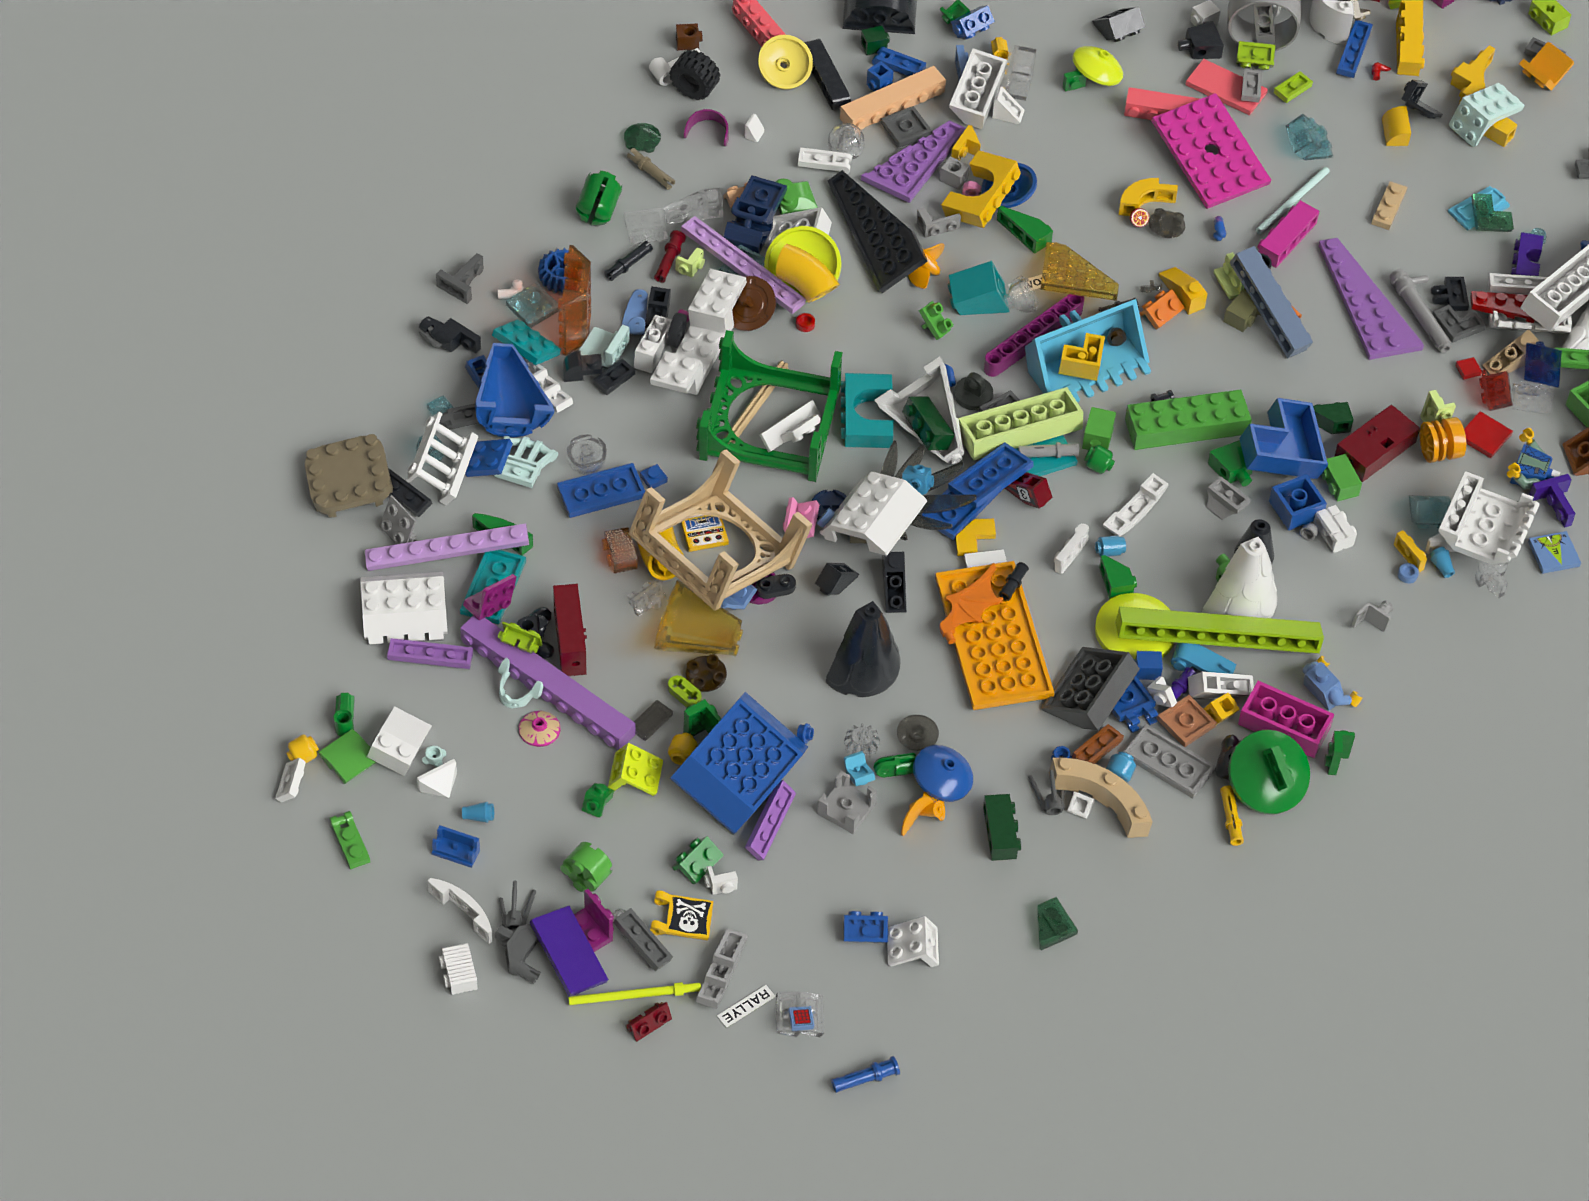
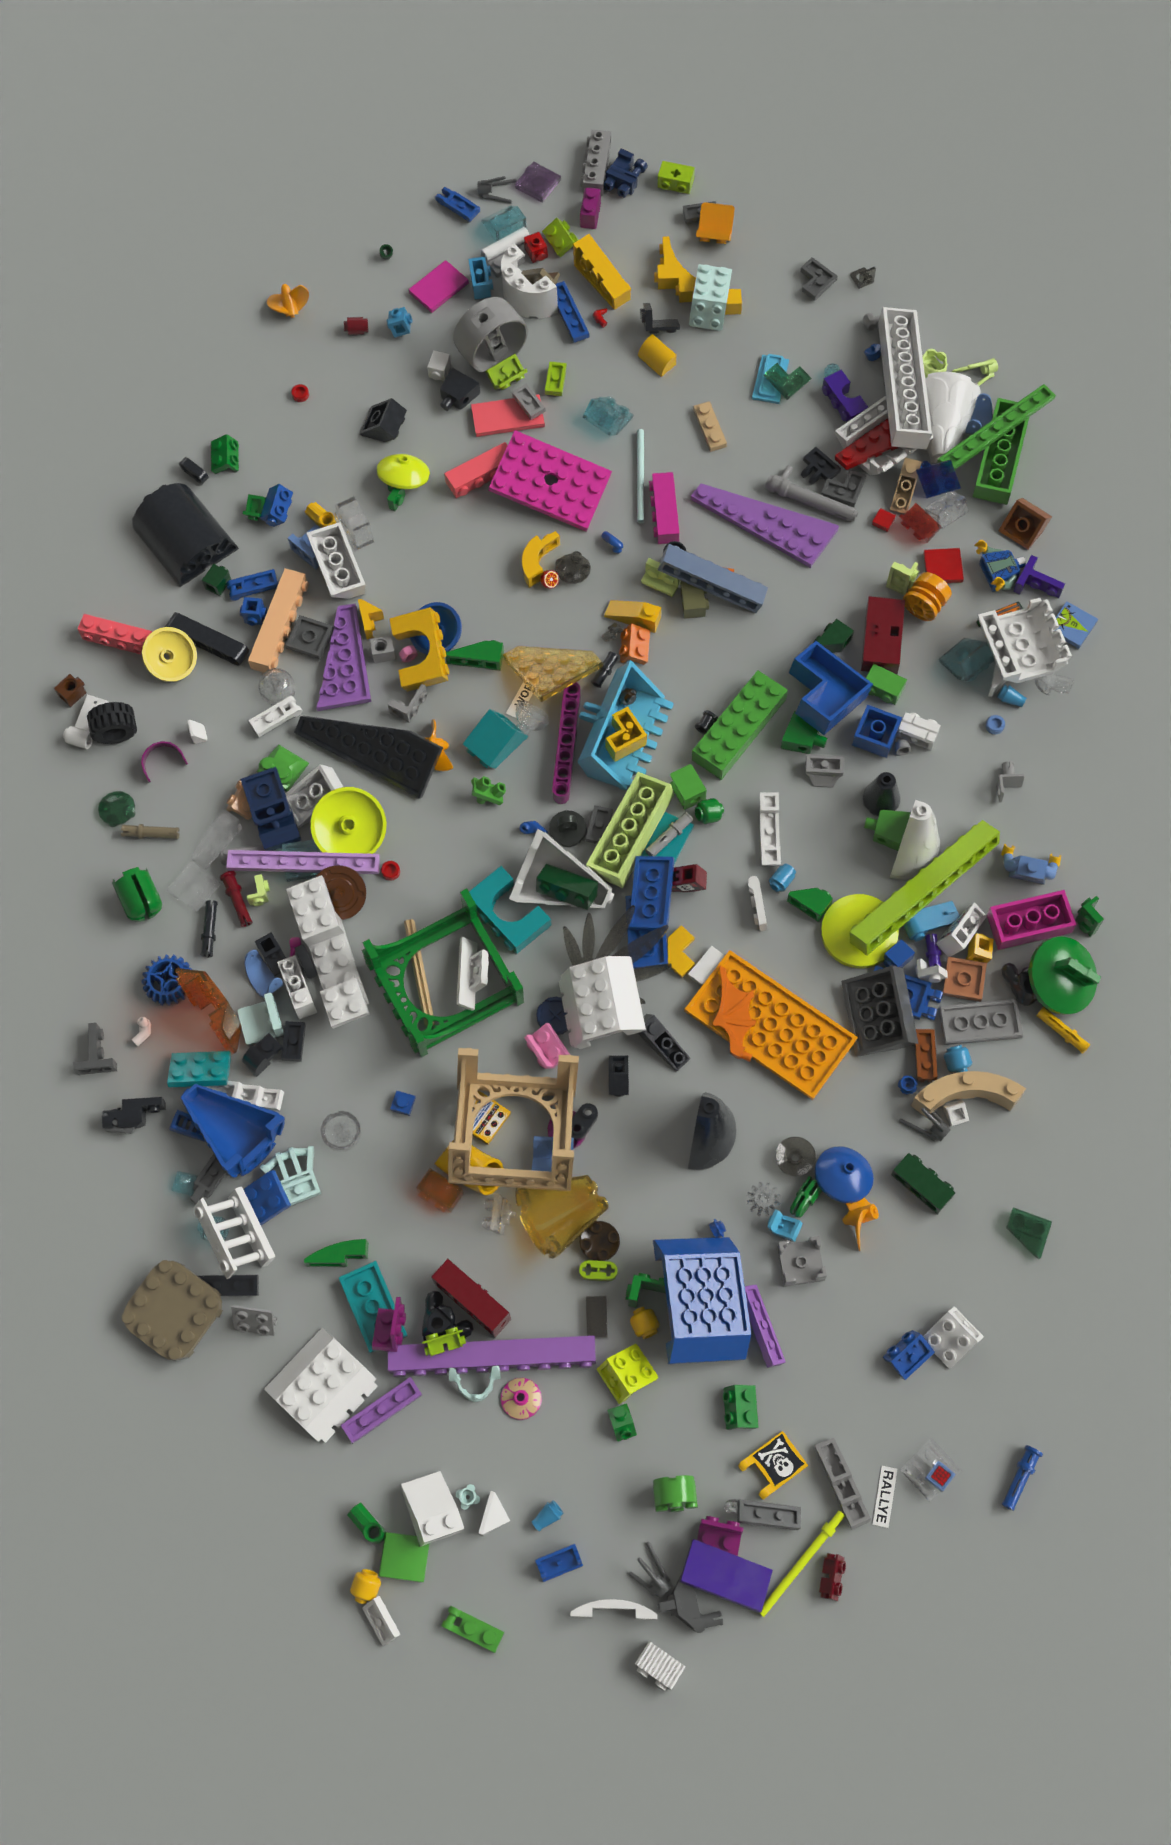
camera: 35 degrees left, 15 degrees up
(446, 547) = (309, 1307): lavender plate -> none
(532, 305) = (172, 1030): clear light blue plate -> none
(601, 490) = (376, 1150): blue plate -> none
(720, 883) = (779, 1411): white bracket -> none
(805, 273) = (364, 834): yellow brick -> none
(825, 518) = (565, 1031): medium blue tile -> none
(919, 478) = (608, 943): dark azure brick -> none
(1006, 107) = (369, 561): white slope -> none
(1013, 581) = (748, 969): black pin -> none
(1409, 550) = (983, 706): yellow plate -> none

